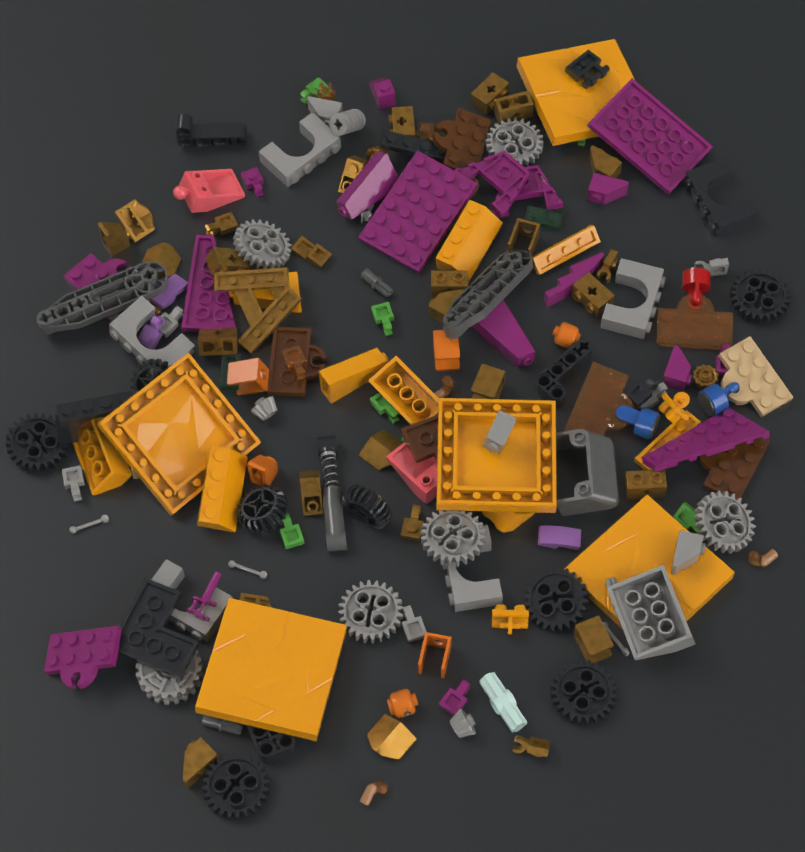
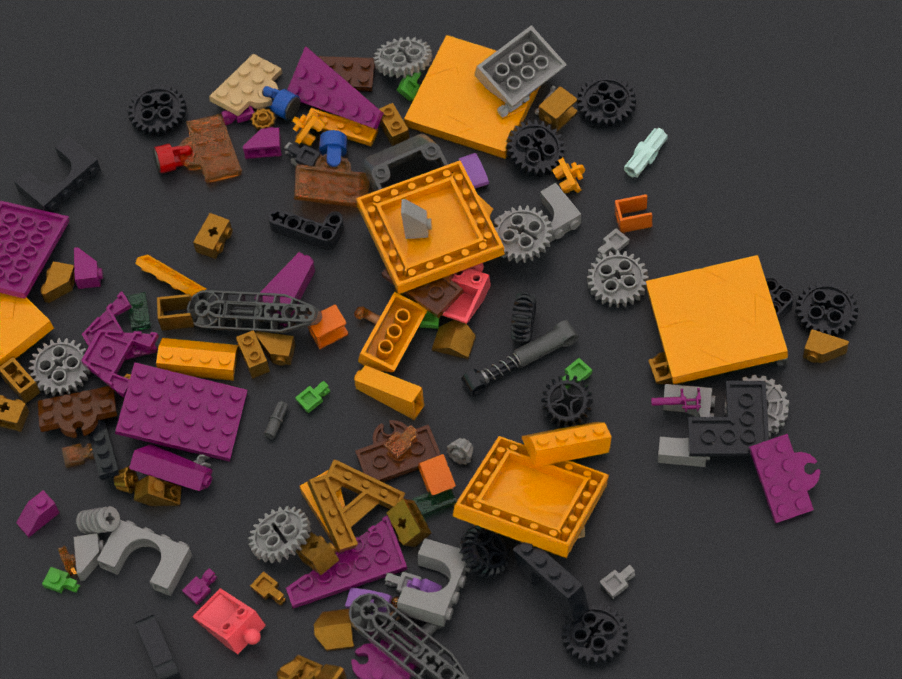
camera: 110 degrees left, 0 degrees up
(100, 459) = (588, 562): light orange slope -> none
(104, 518) = (639, 539): light grey hinge -> none
(262, 470) = (526, 419): orange slope -> none
(263, 575) = (625, 381): light grey hinge -> none
(310, 253) = (264, 494): pearl gold slope -> none
(311, 492) = (526, 374): pearl gold slope -> none
(371, 789) = (767, 211): medium nougat arm -> none
(384, 406) = (410, 355): bright green plate -> none
(390, 738) = (720, 222): slope -> none
(402, 120) = (79, 466): pearl gold brick -> none
(402, 703) = (687, 220): orange head -> none
(412, 526) = (518, 283): pearl gold plate -> none
(455, 700) = (663, 186): magenta plate -> none
(463, 724) = (681, 170): light grey piece -> none
(488, 383) = (351, 278): pearl gold piece -> none
(535, 746) = (670, 115): pearl gold plate -> none
(566, 335) = (267, 239): orange head -> none
(577, 271) = (197, 254): magenta slope -> none
(611, 262) = (174, 236): pearl gold plate -> none
(635, 320) = (180, 195): light grey arch -> none
(687, 551) = (449, 67): light grey slope -> none
(715, 267) = (139, 152): light grey plate -> none
(762, 560) = (421, 25): arm -> none

